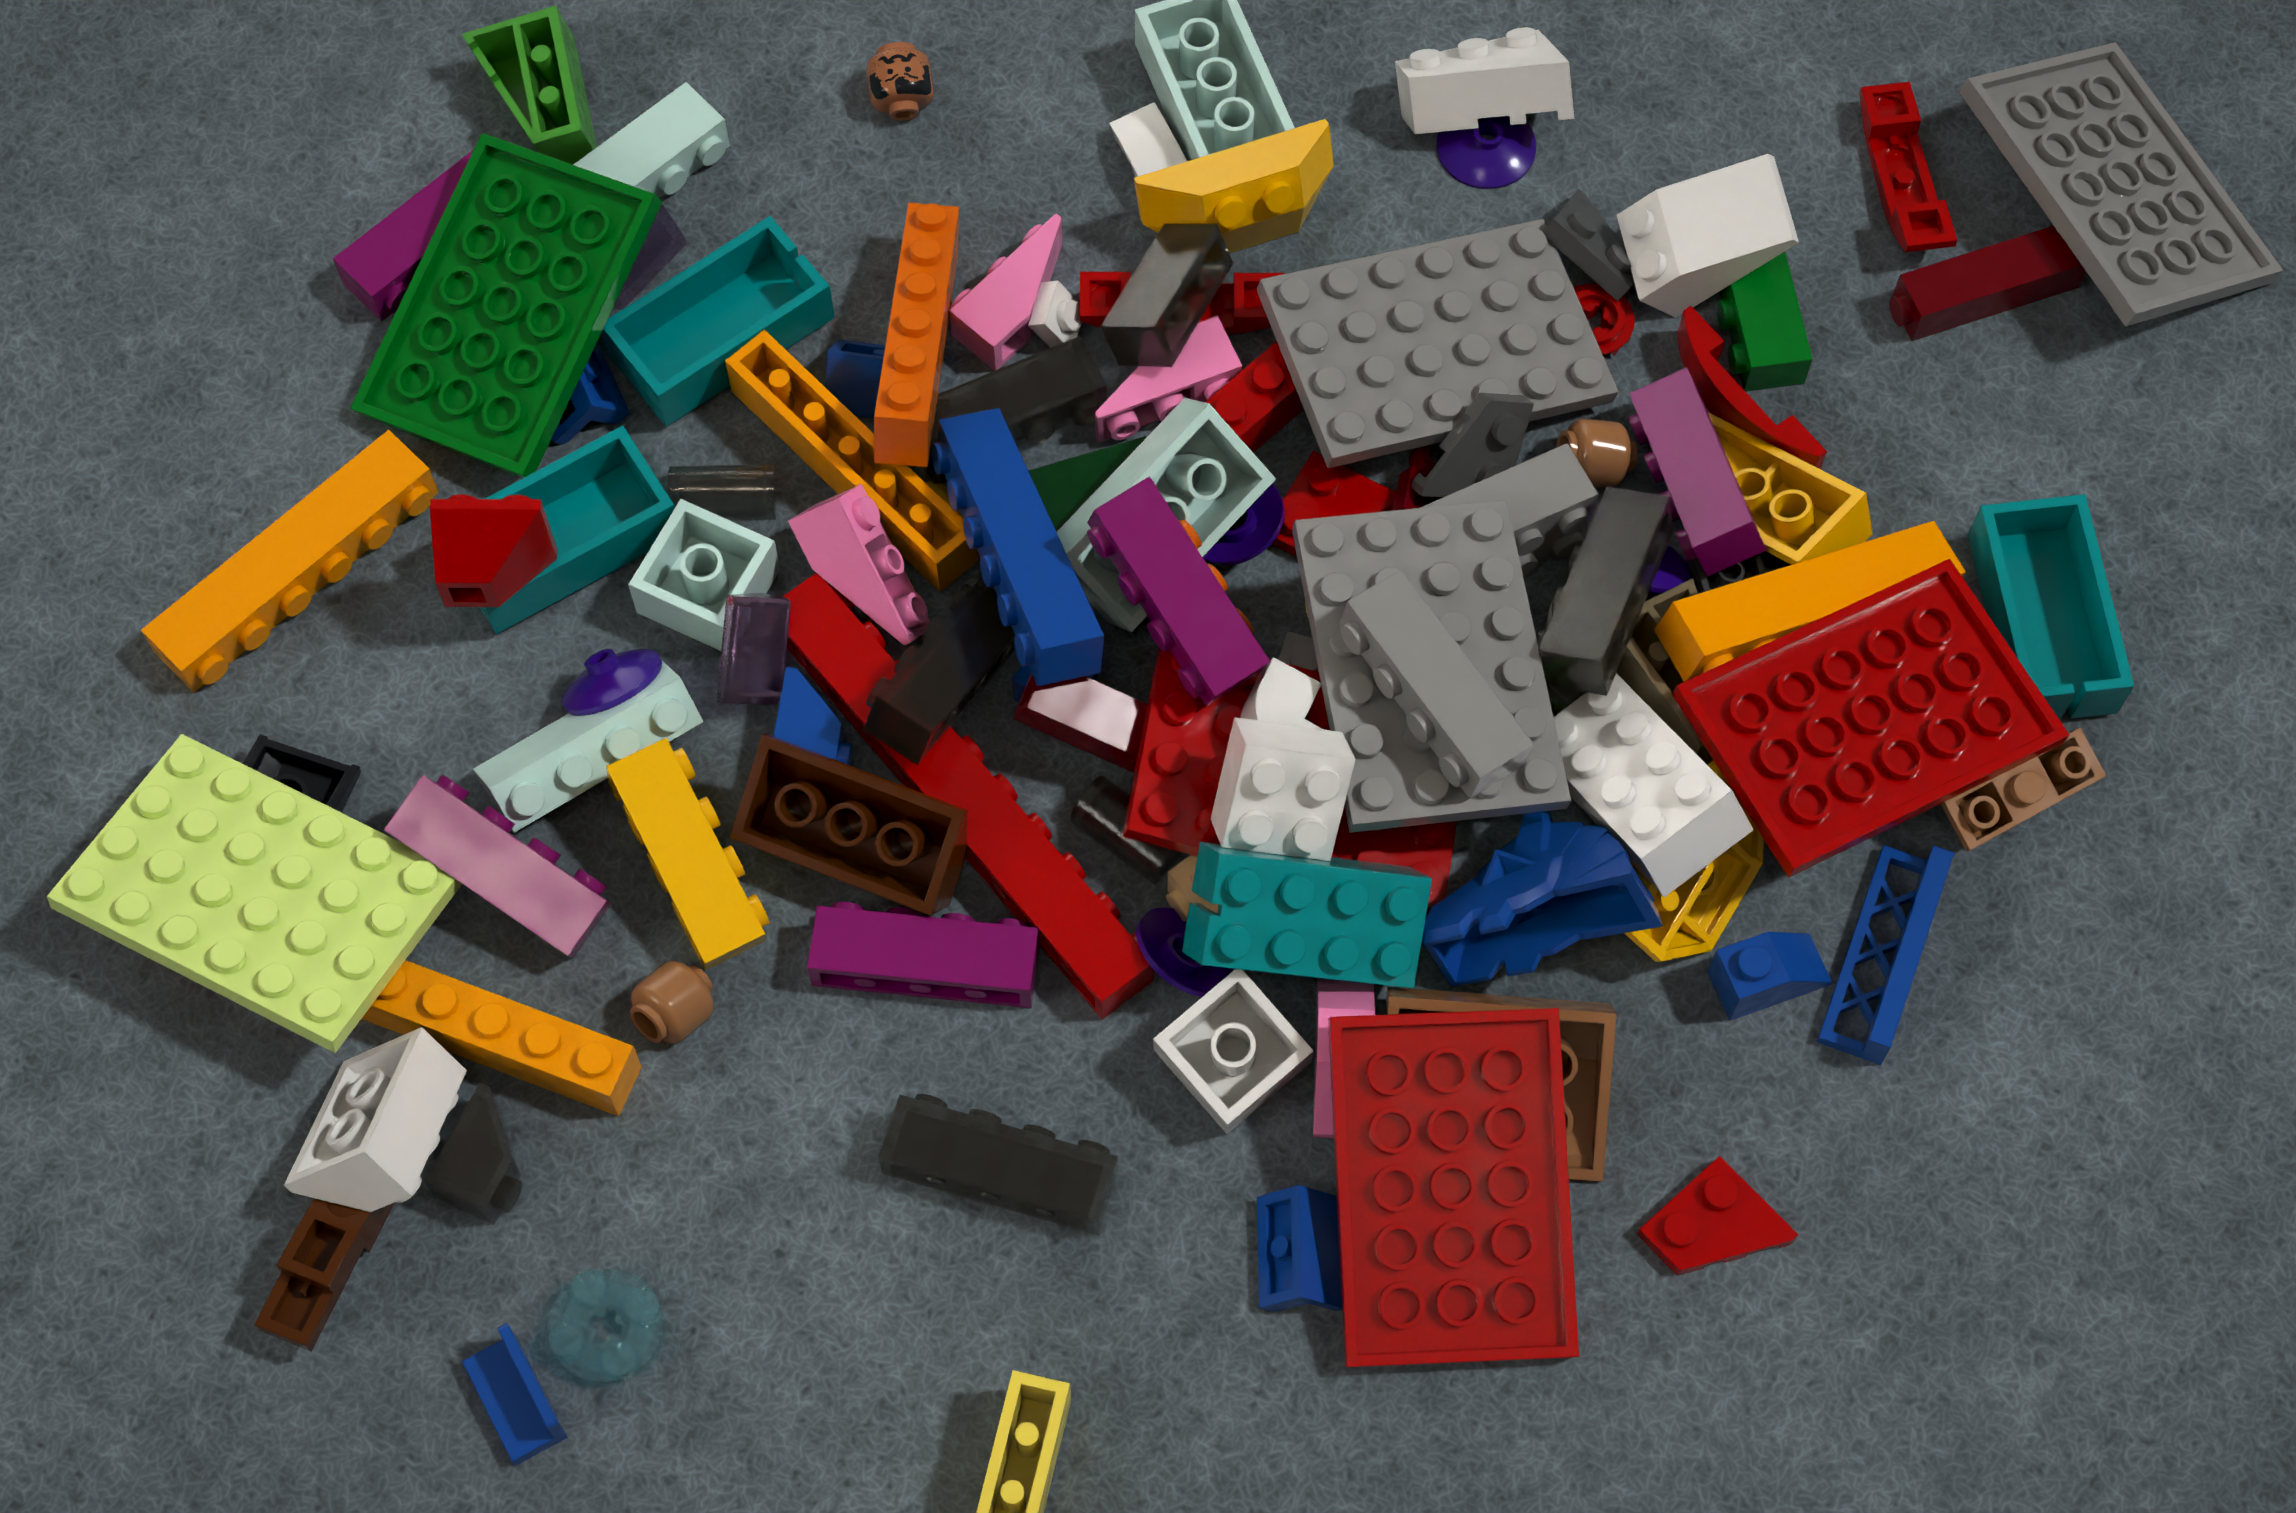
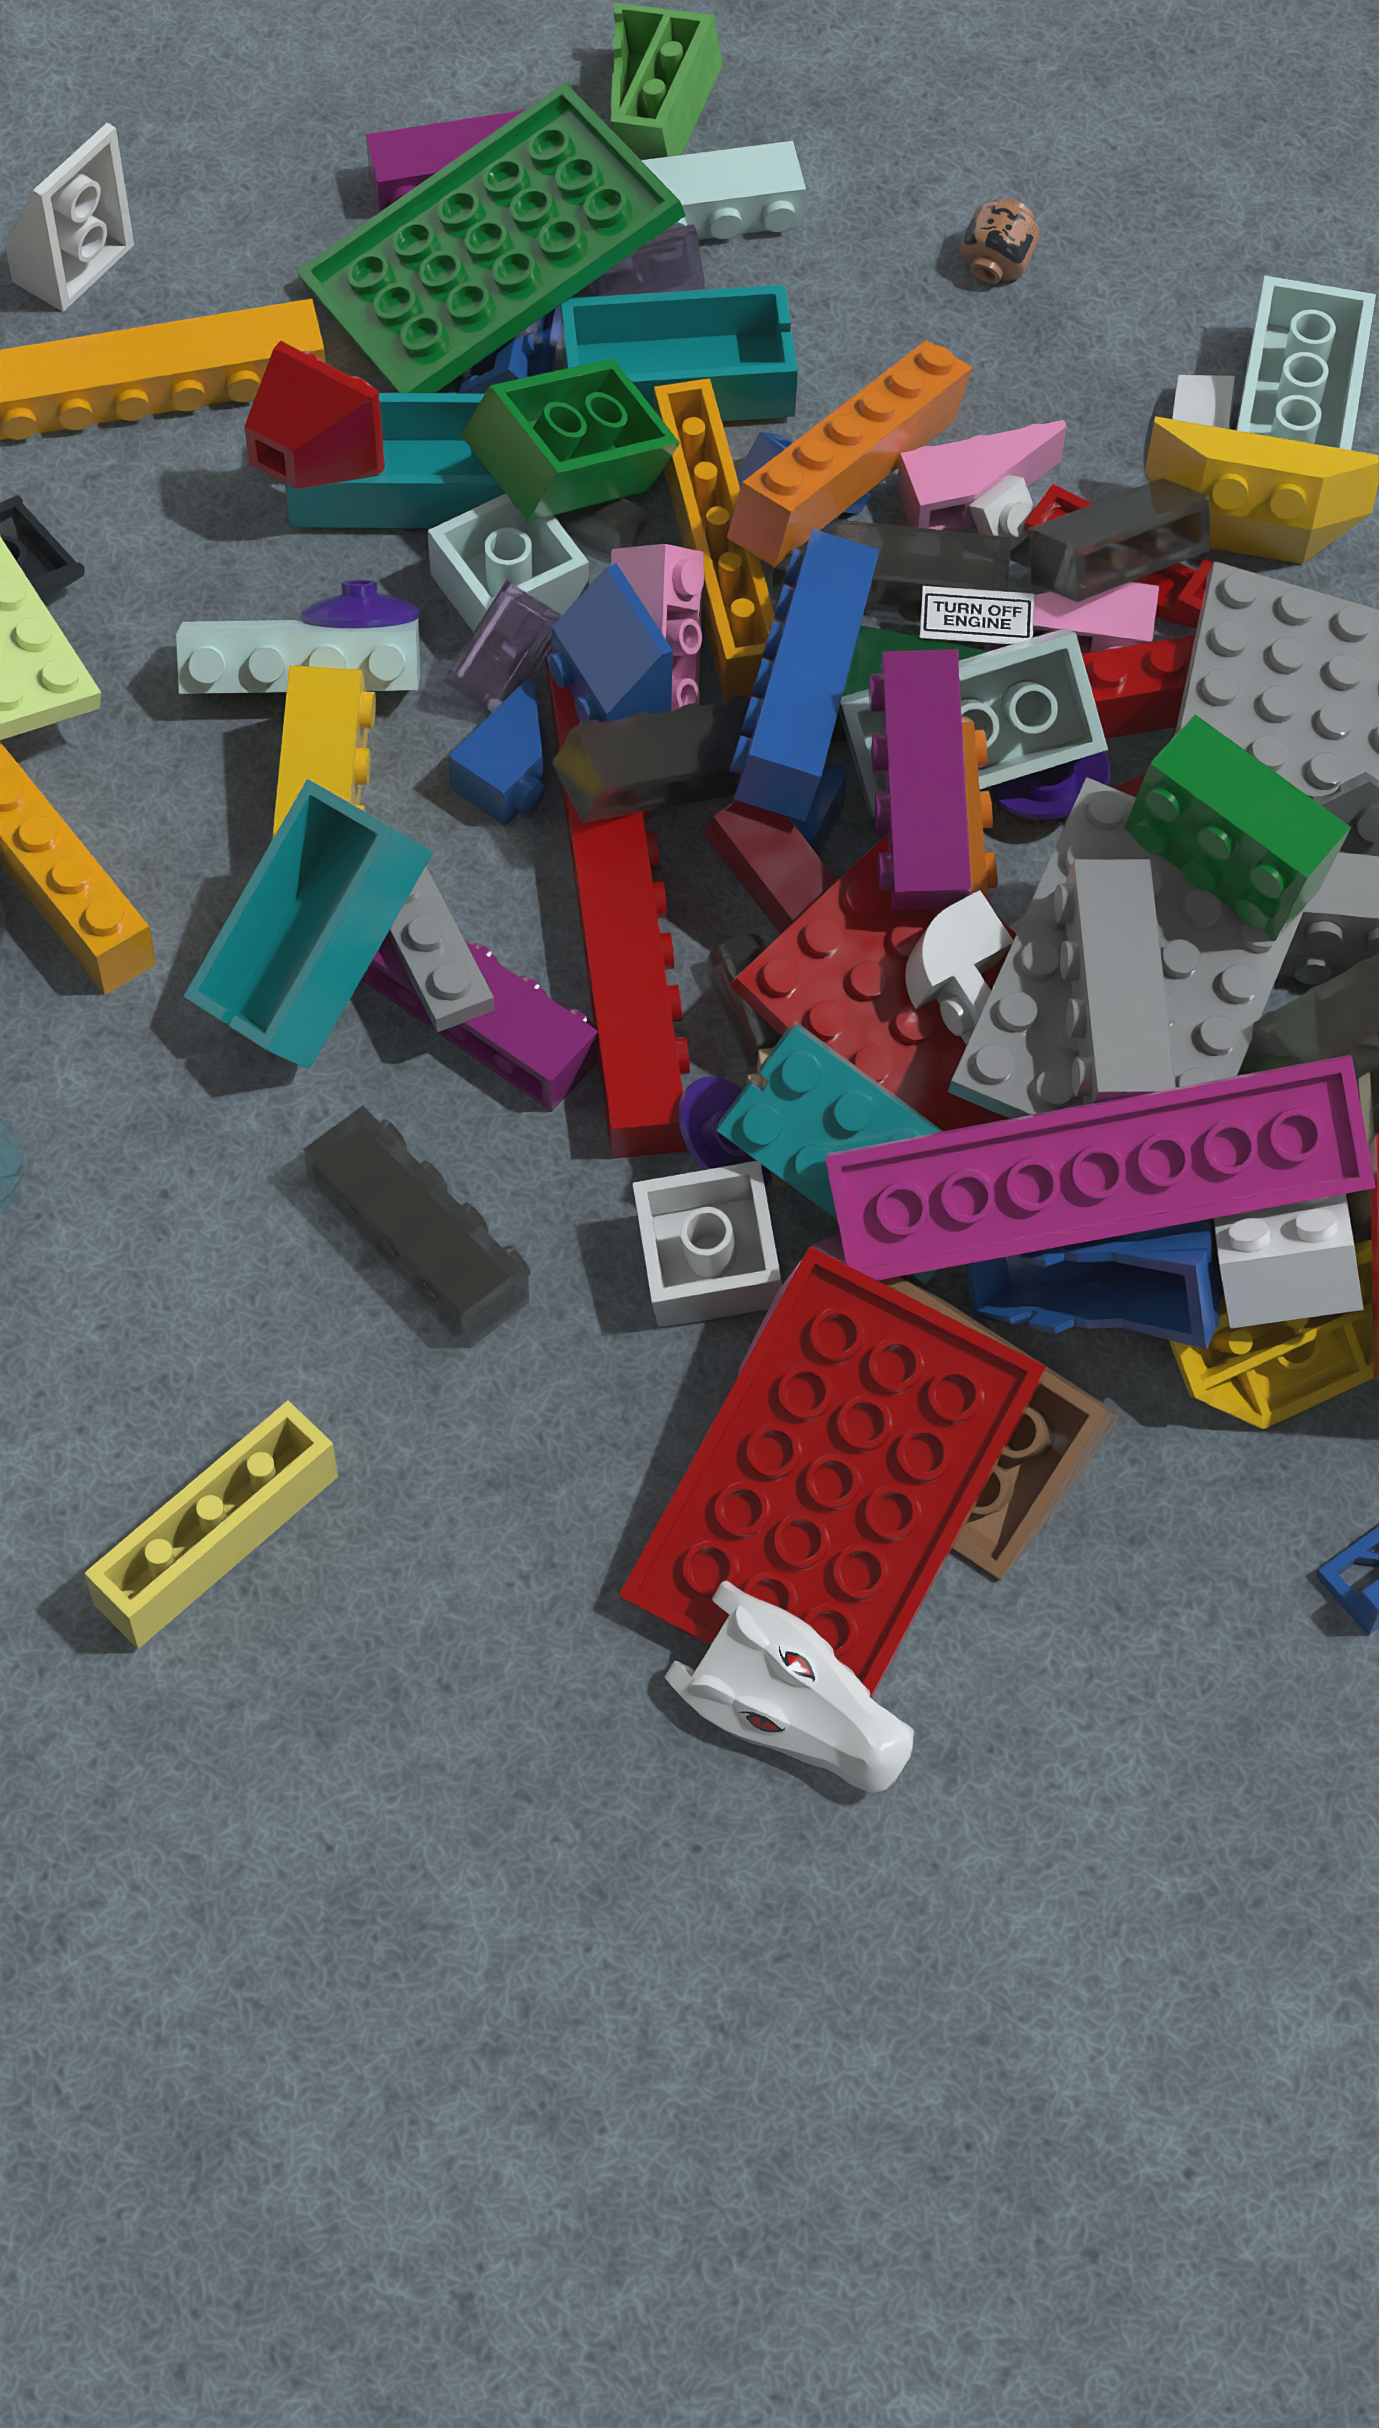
camera: 30 degrees right, 5 degrees down
(143, 473) = (73, 224): none -> white slope
(498, 865) = (142, 710): brick -> none
(671, 1002) = (203, 911): medium nougat head -> none
(697, 447) = (569, 438): none -> green brick
(766, 975) = (308, 925): none -> teal piece
(852, 826) = (488, 847): reddish brown slope -> none
(856, 616) = (611, 653): none -> blue slope
(862, 932) = (438, 958): none -> light grey plate
(1098, 417) = (976, 615): none -> white sticker
(1282, 789) = (903, 1011): white brick -> none
(1298, 1249) = (645, 1463): blue panel -> none
(1445, 507) = (1235, 827): none -> green brick
(1508, 835) = (1102, 1169): none -> dark pink plate
(1515, 1365) = (786, 1691): none -> white animal
(1714, 1222) = (1087, 1679): red wing -> none
(1766, 971) = (1307, 1475): blue slope -> none

